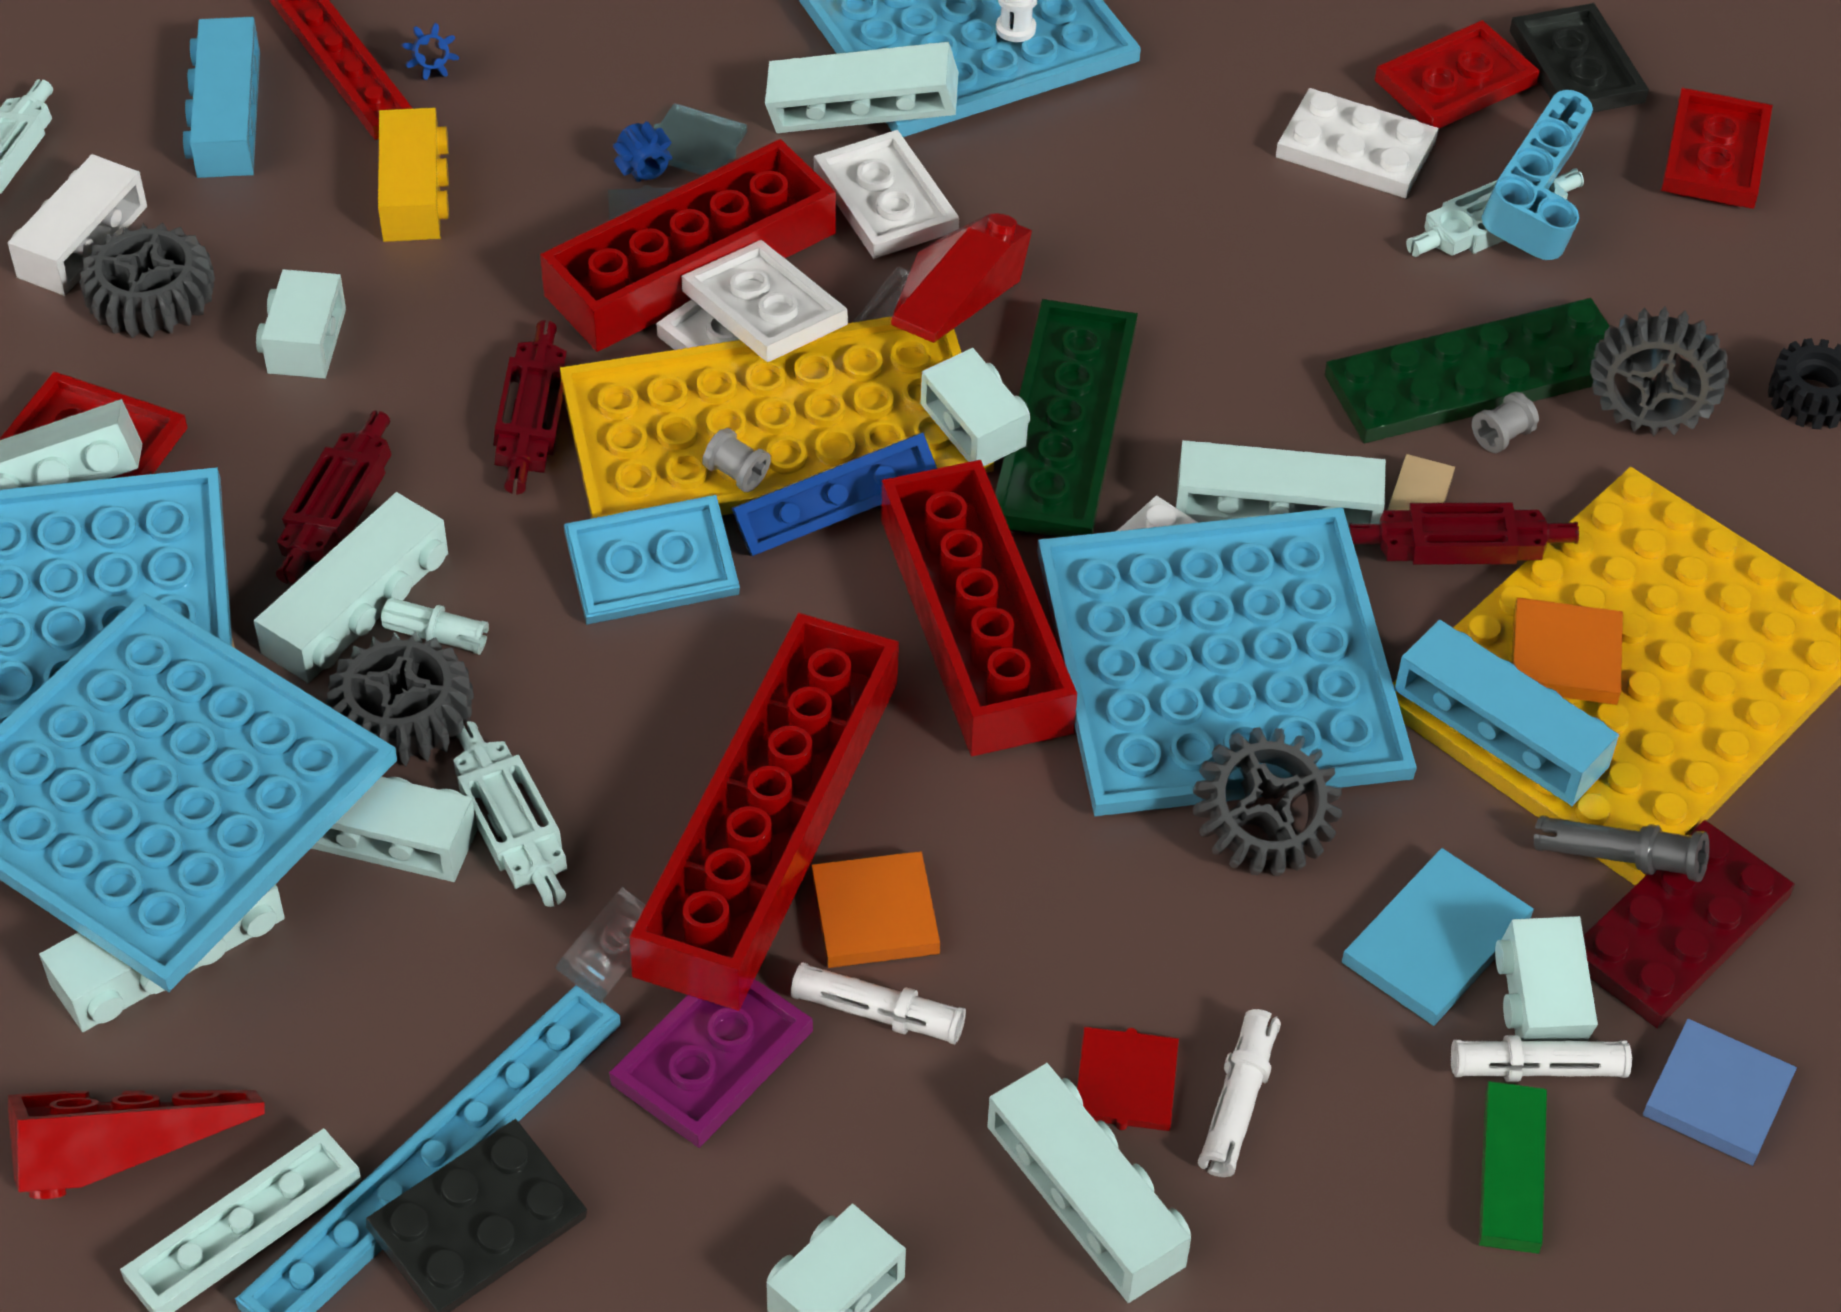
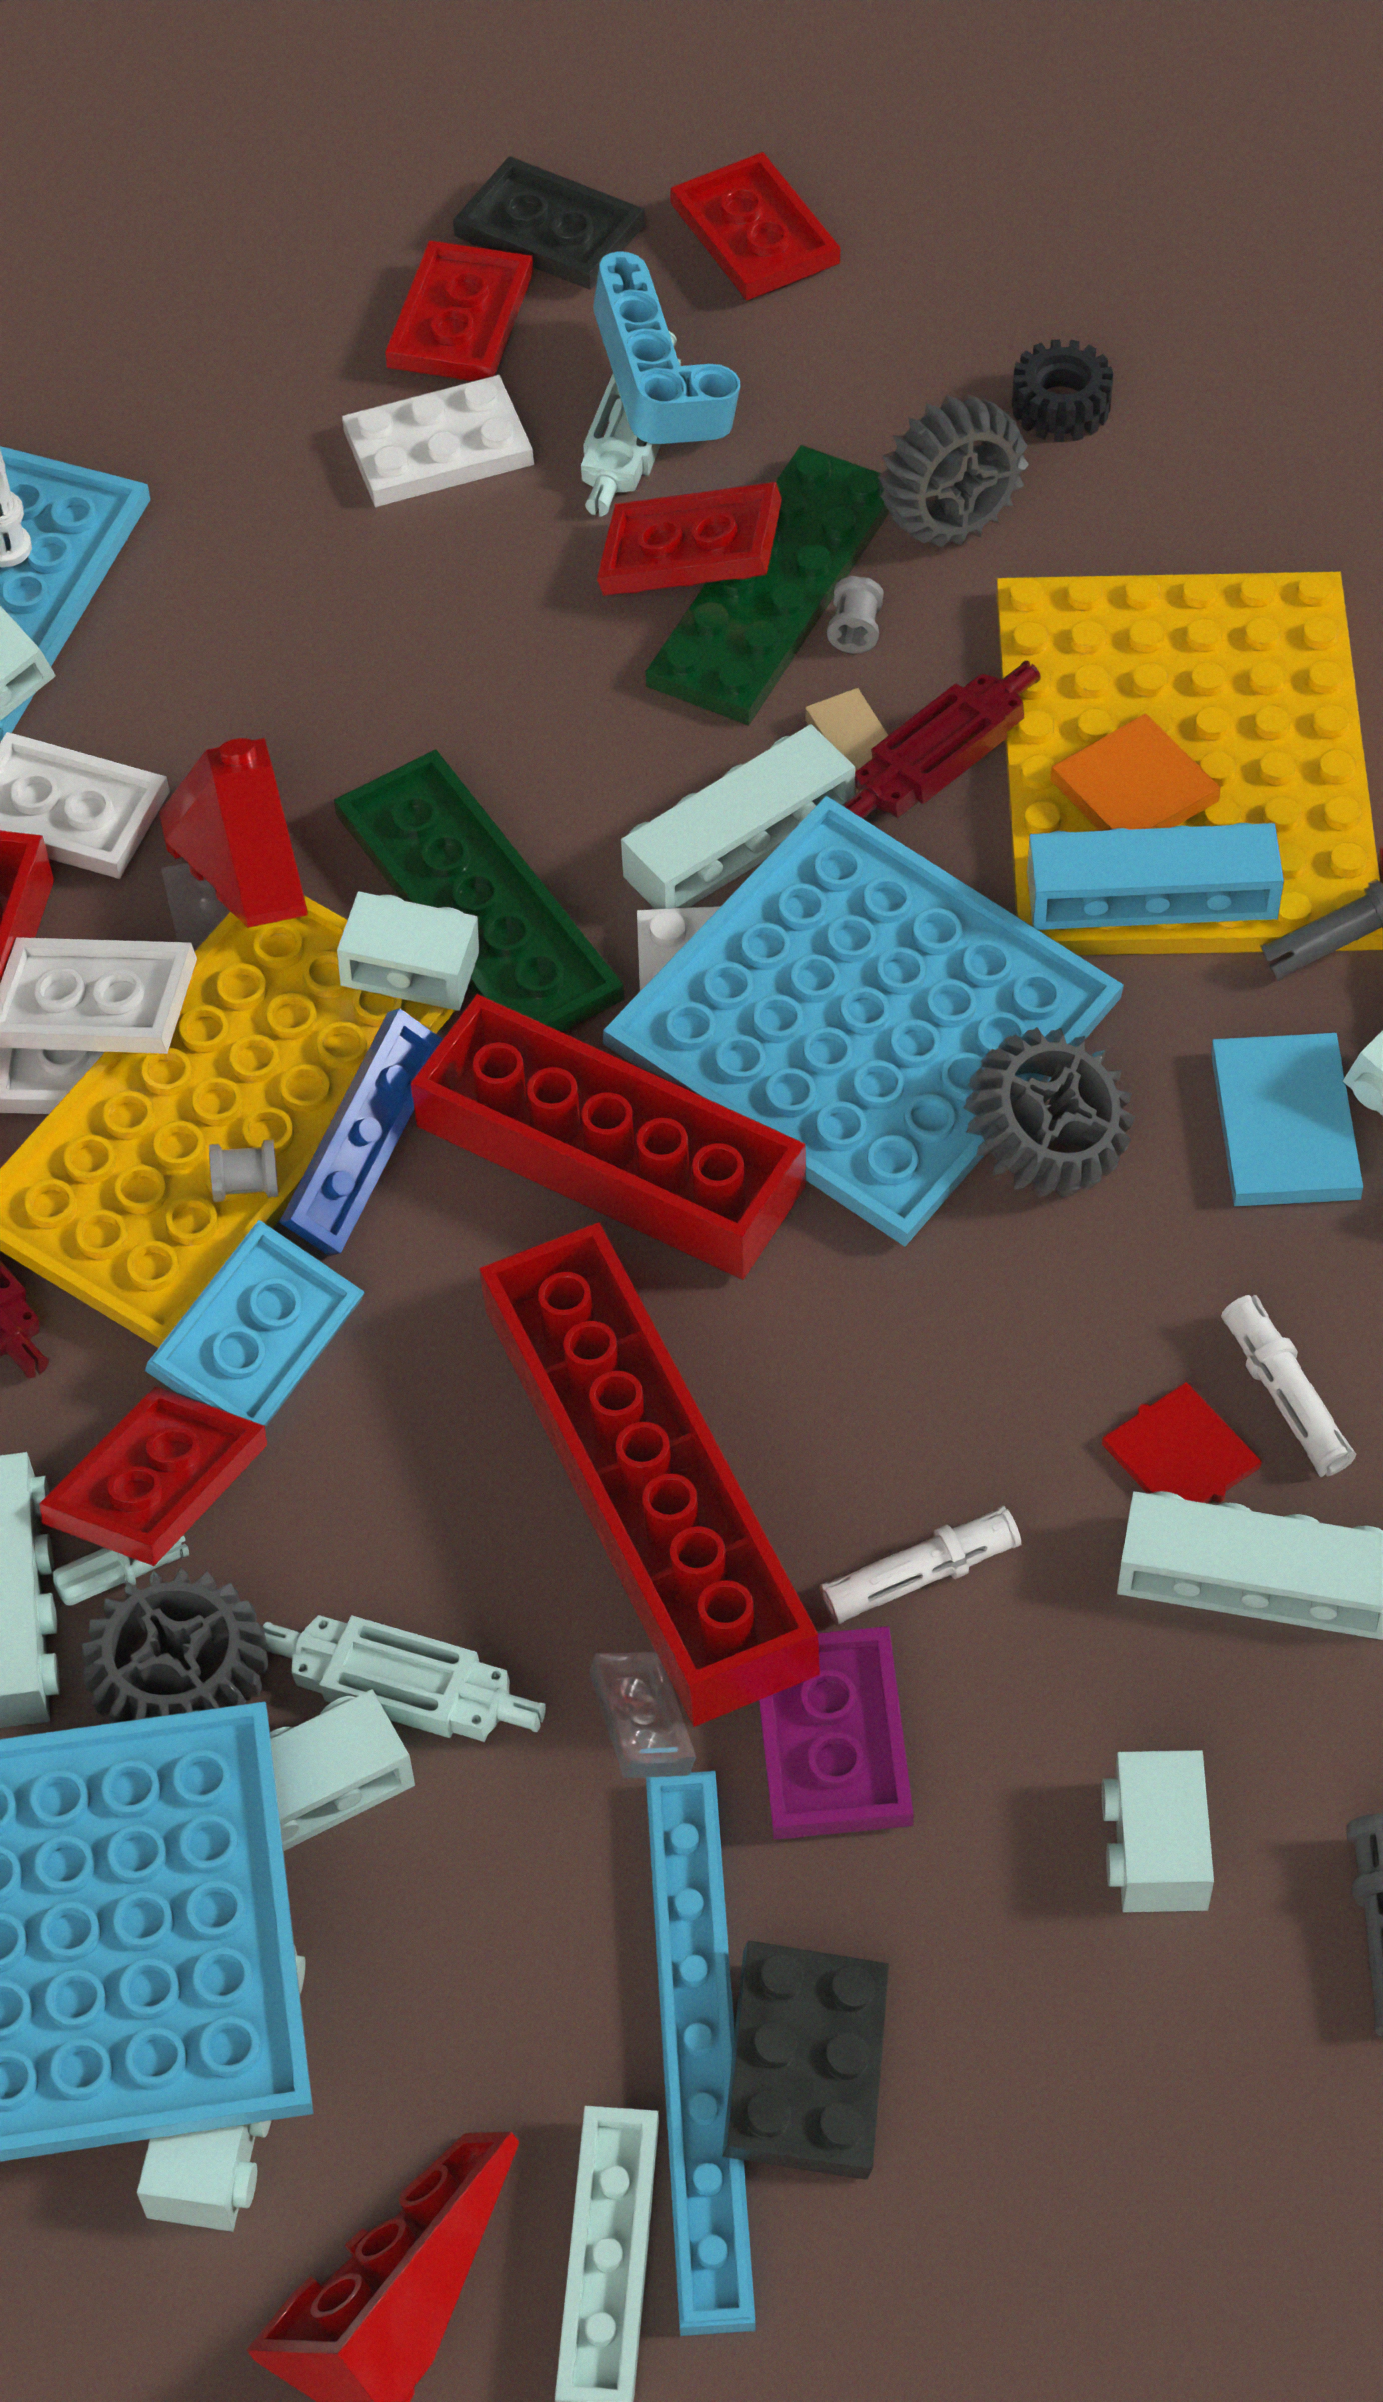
camera: 40 degrees left, 5 degrees up
(498, 588) = (153, 1475): none -> red plate
(875, 909) = (821, 1485): orange tile -> none
(1441, 300) = (690, 539): none -> red plate

